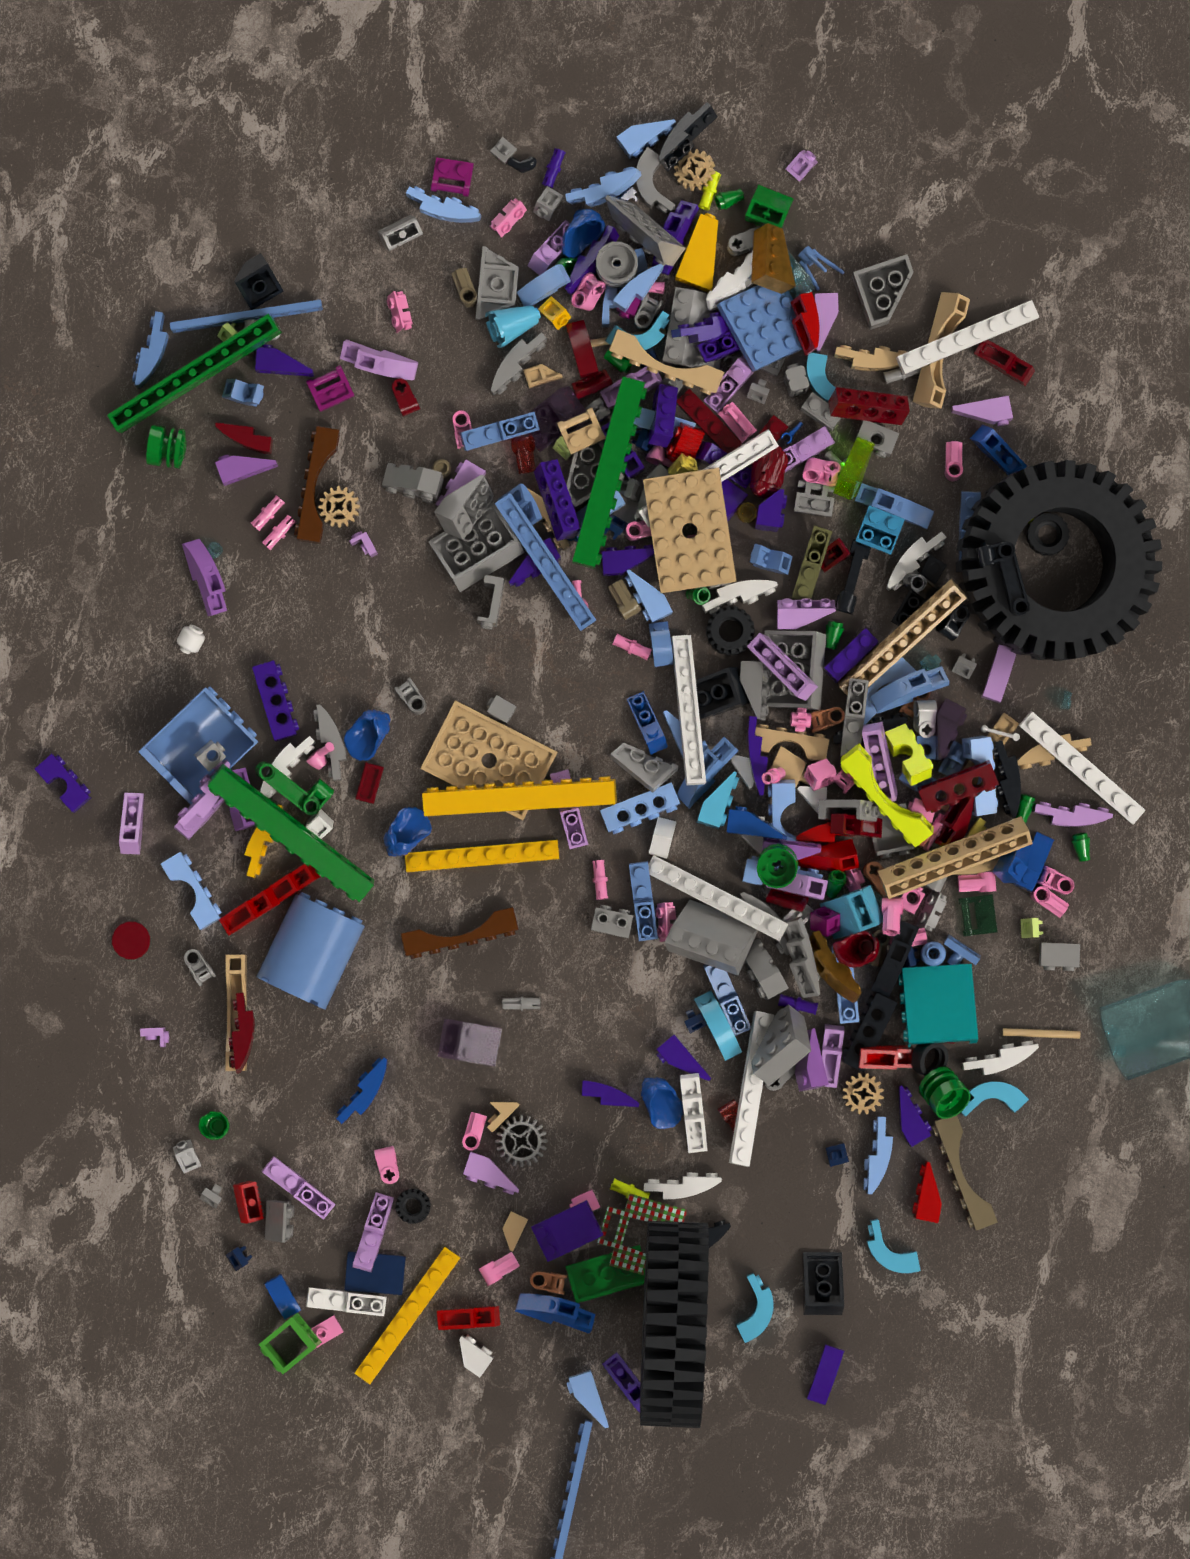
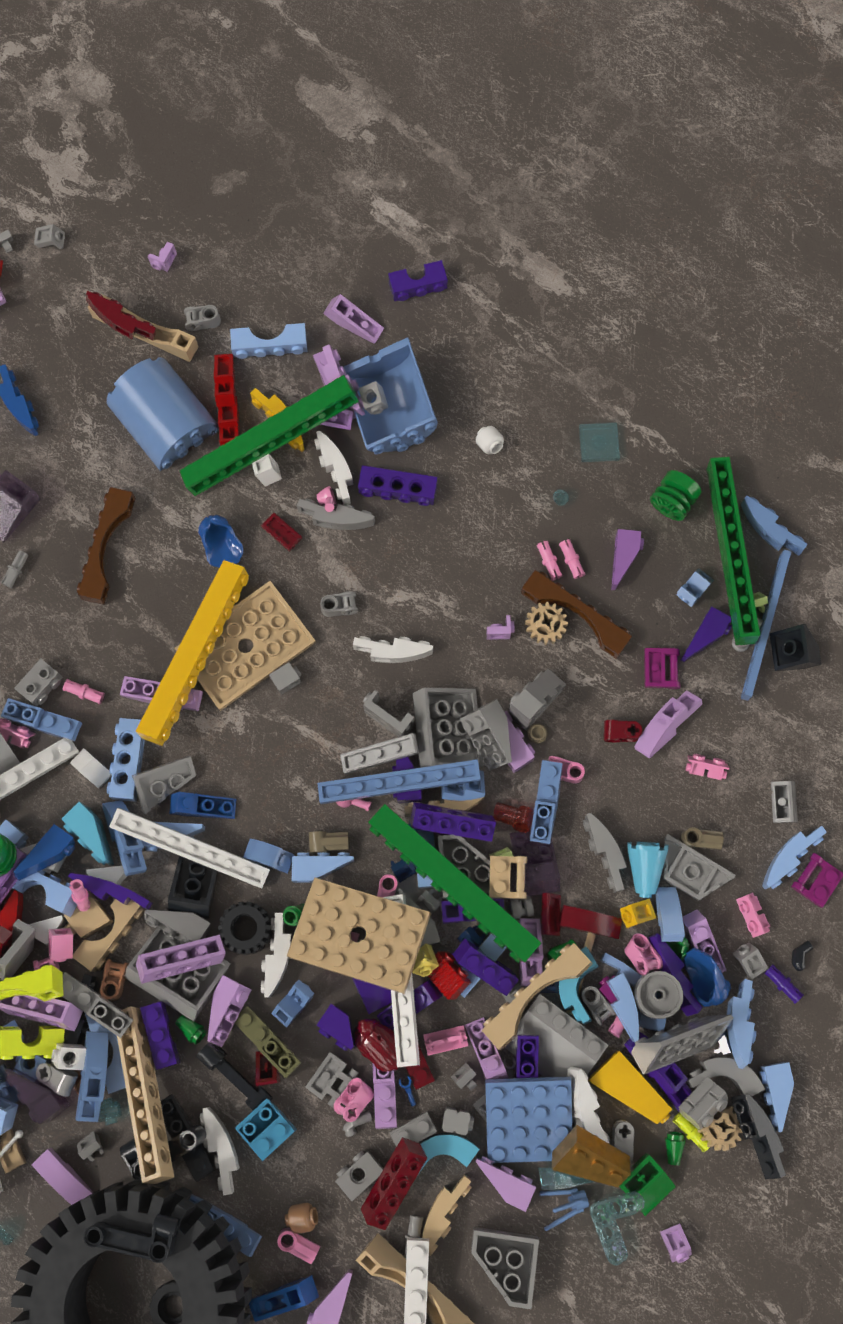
camera: 120 degrees right, 10 degrees down
(131, 940) = (254, 276): dark red tile -> none
(142, 541) = (599, 442): none -> clear light blue plate
(207, 575) = (540, 477): medium lavender slope -> none
(214, 1125) = (59, 267): green hair -> none
(246, 437) = (650, 571): dark red slope -> none
(319, 793) = (307, 459): green piece -> none
(367, 734) = (325, 550): blue hair -> none
(426, 621) = (401, 651): none -> white slope
(482, 856) = (163, 600): yellow plate -> none
(503, 150) = (822, 943): light grey tile -> none
(528, 592) = (379, 753): none -> light grey tile
(540, 375) = (583, 869): tan tile -> none
(617, 562) = (365, 858): dark purple slope -> none
(632, 647) = (280, 827): bright pink pin -> none
(657, 456) = (449, 943): bright pink bar -> none
(684, 190) = (704, 1103): none -> light grey brick
(706, 330) = (550, 1048): dark purple slope -> none
(708, 422) = (458, 1011): dark red plate -> none
(747, 516) = (351, 1004): clear yellow wheel -> none
(800, 719) = (123, 952): bright pink gear -> none
(806, 225) = (610, 1214): none -> clear light blue beam
(806, 321) = (510, 1162): red slope -> none
(854, 469) = (338, 1135): clear neon green slope -> none
(895, 505) = (282, 1158): medium blue slope -> none
(900, 708) = (77, 1060): none -> white brick
(932, 467) = (301, 1218): none -> medium nougat head

